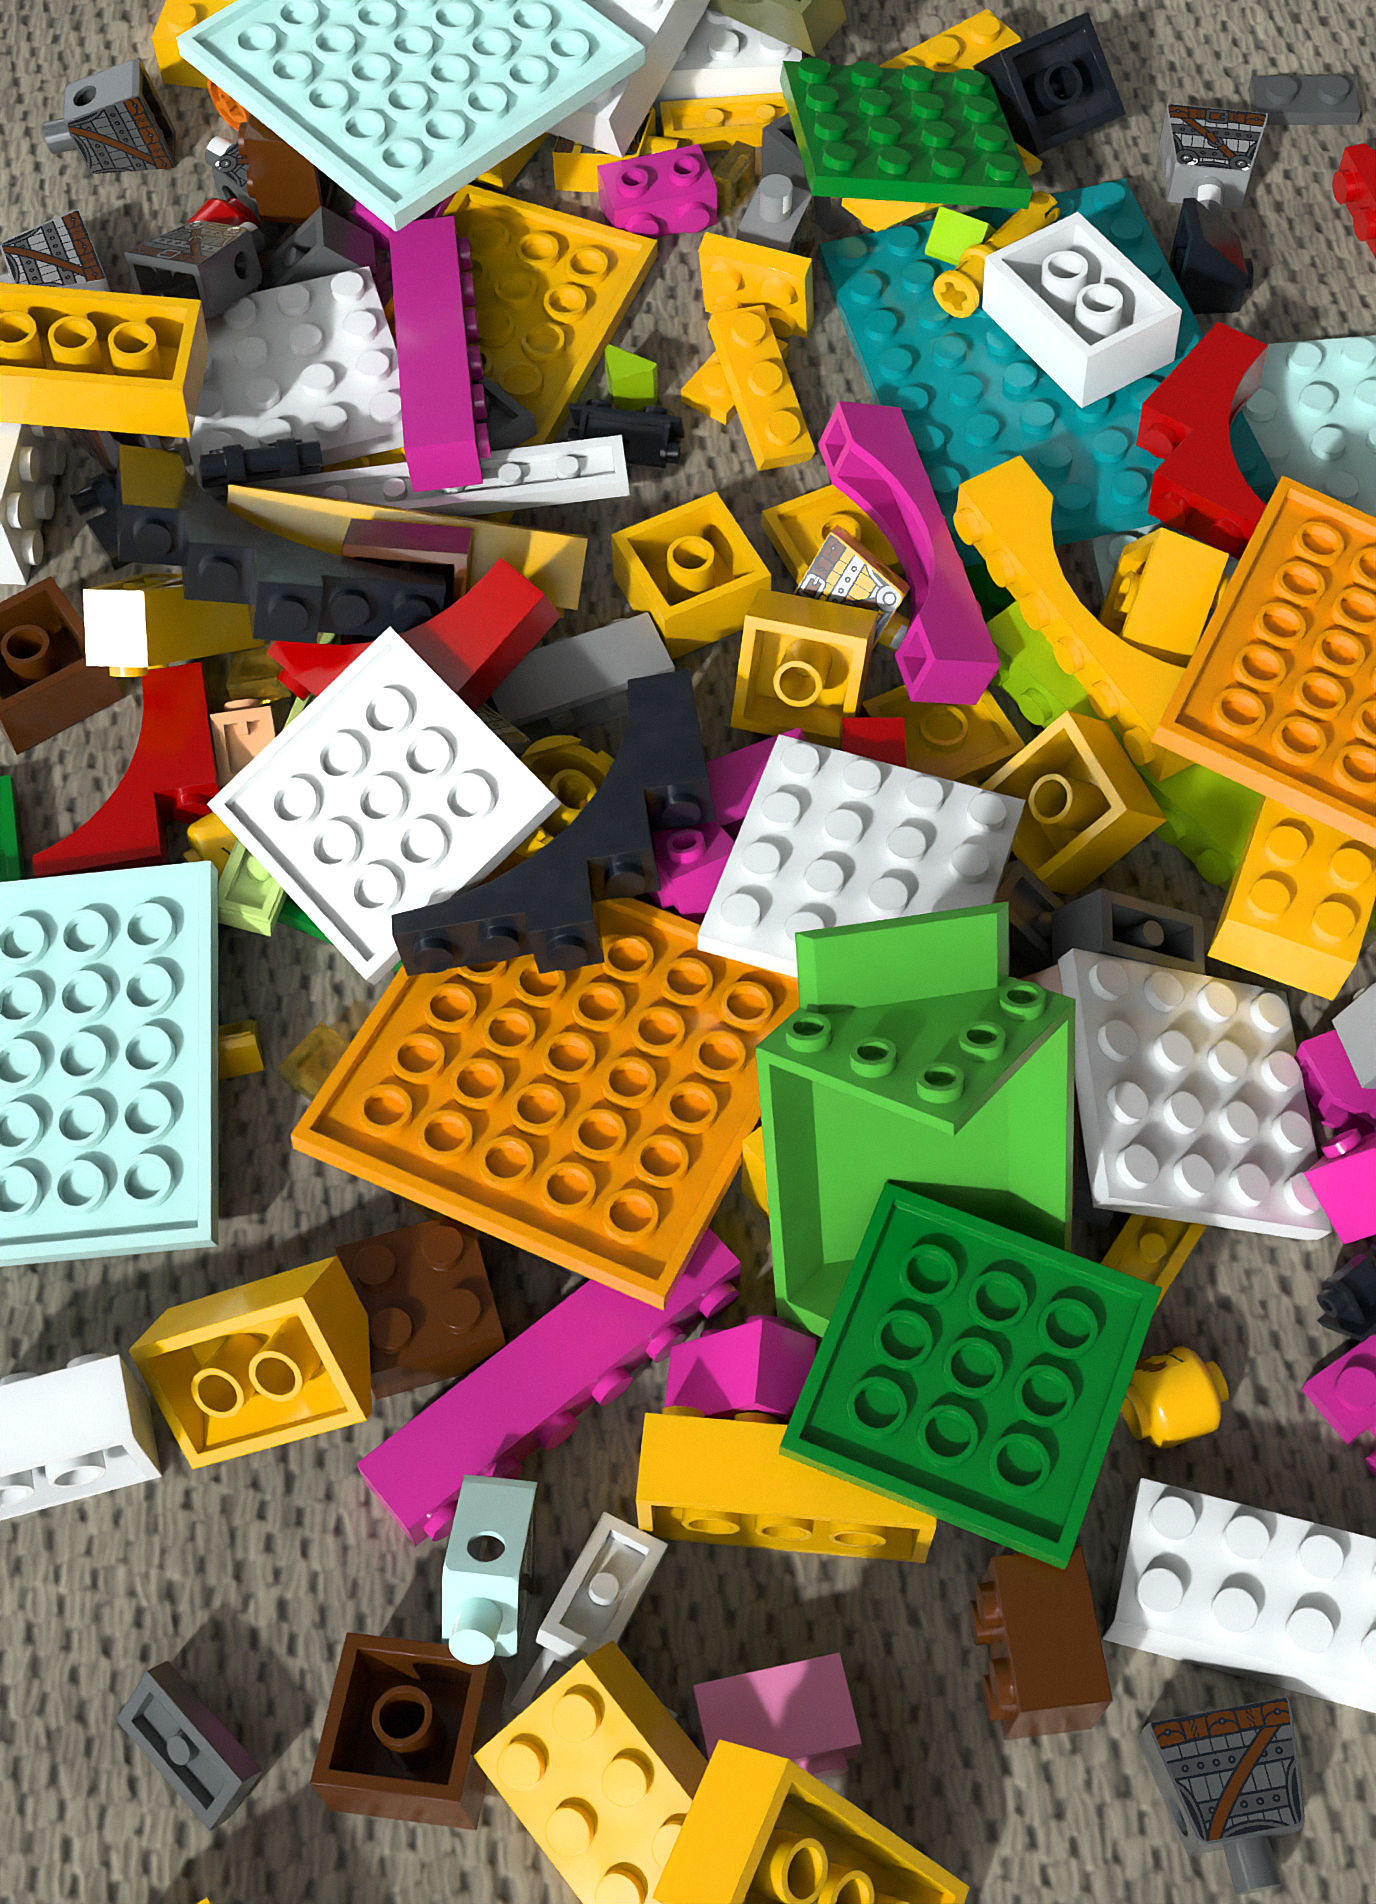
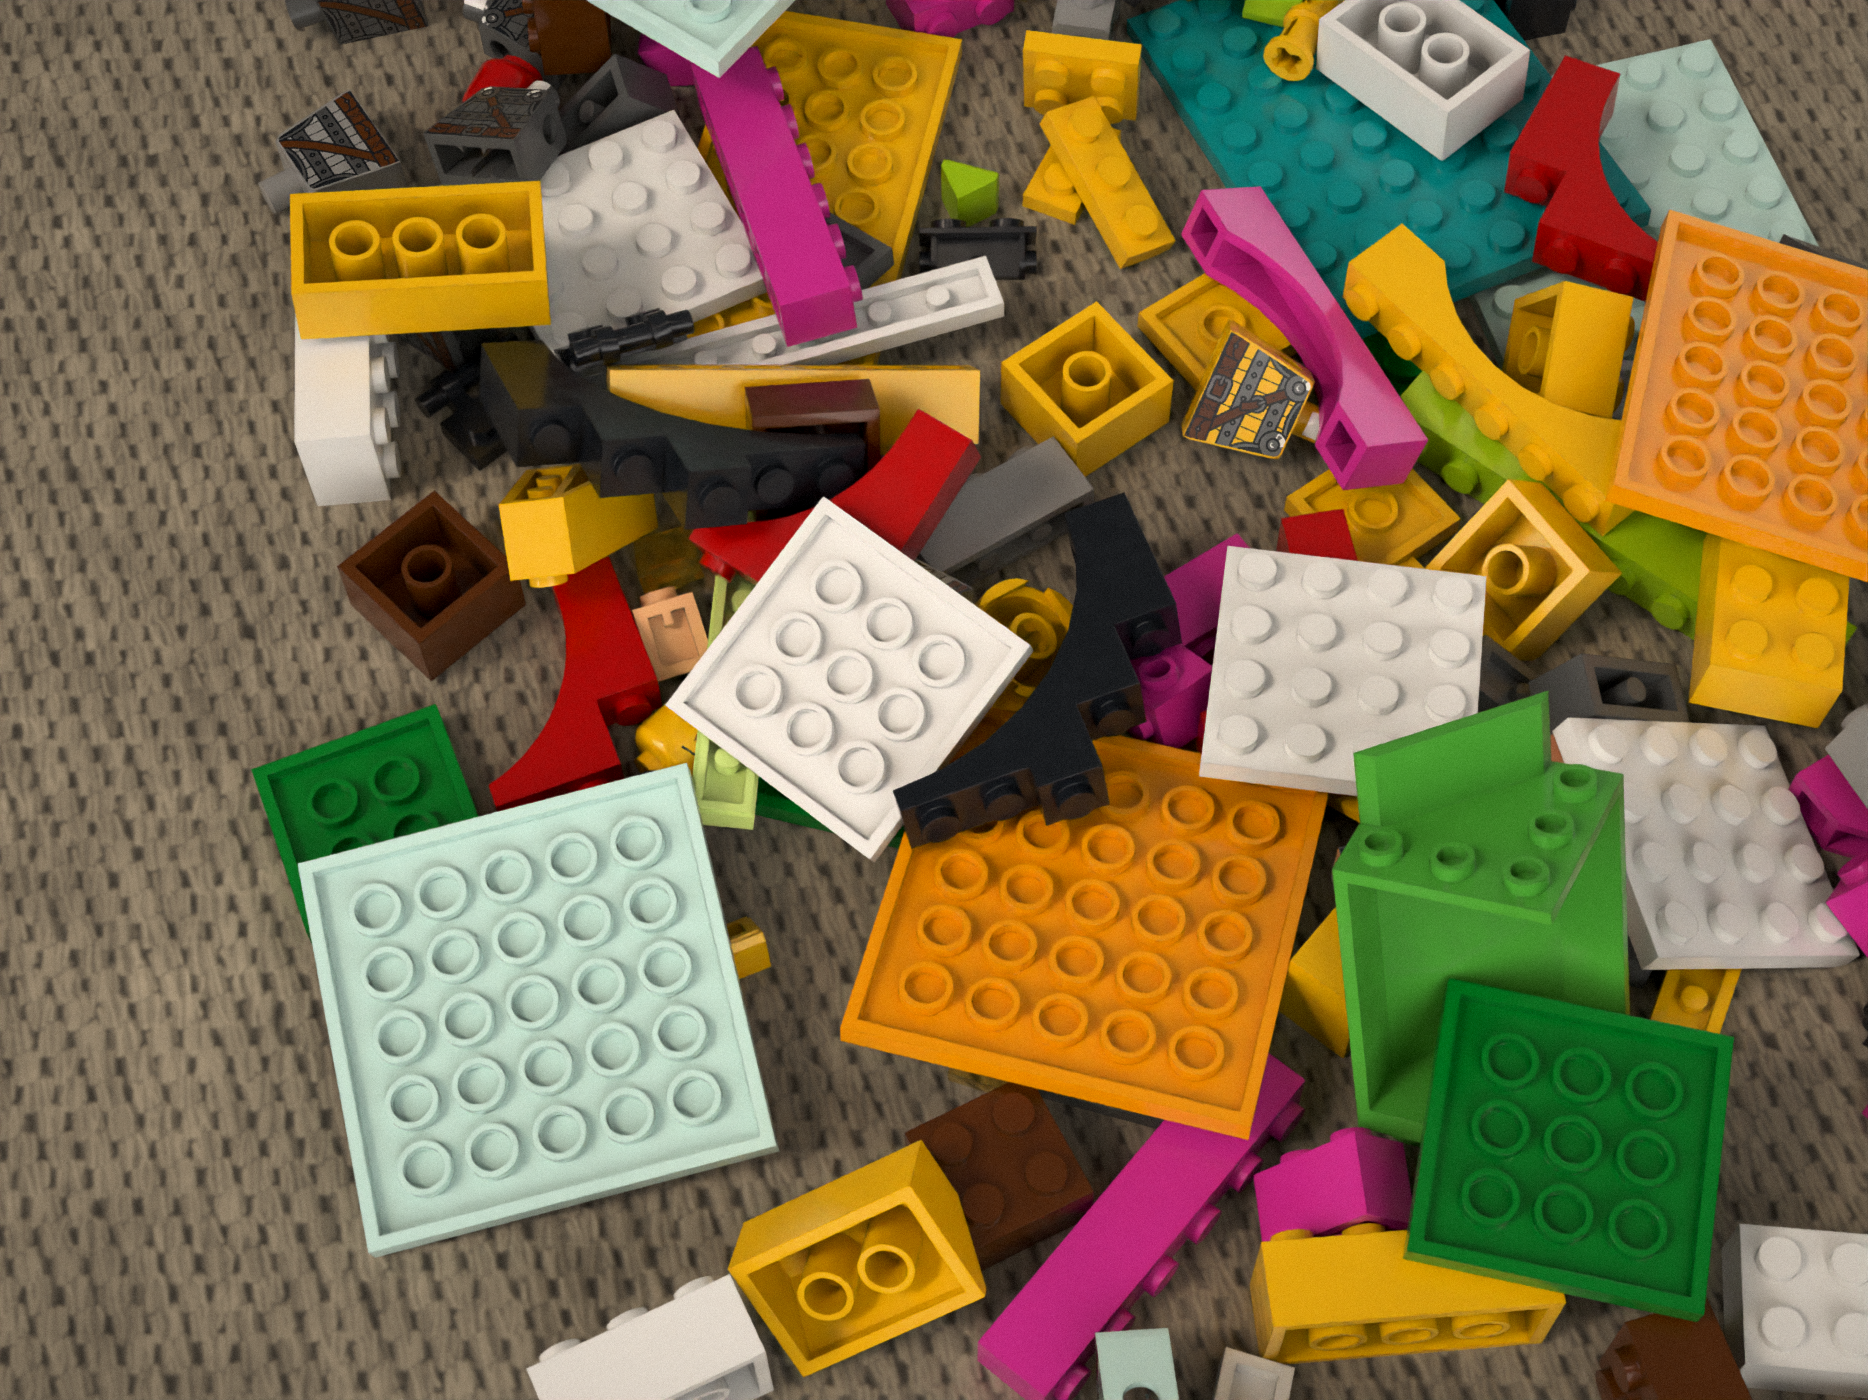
camera: 10 degrees left, 0 degrees up
(313, 1060) = (832, 953): clear yellow plate -> none
(802, 666) = (1226, 471): yellow brick -> none
(1174, 1398) = (1756, 1142): yellow head -> none

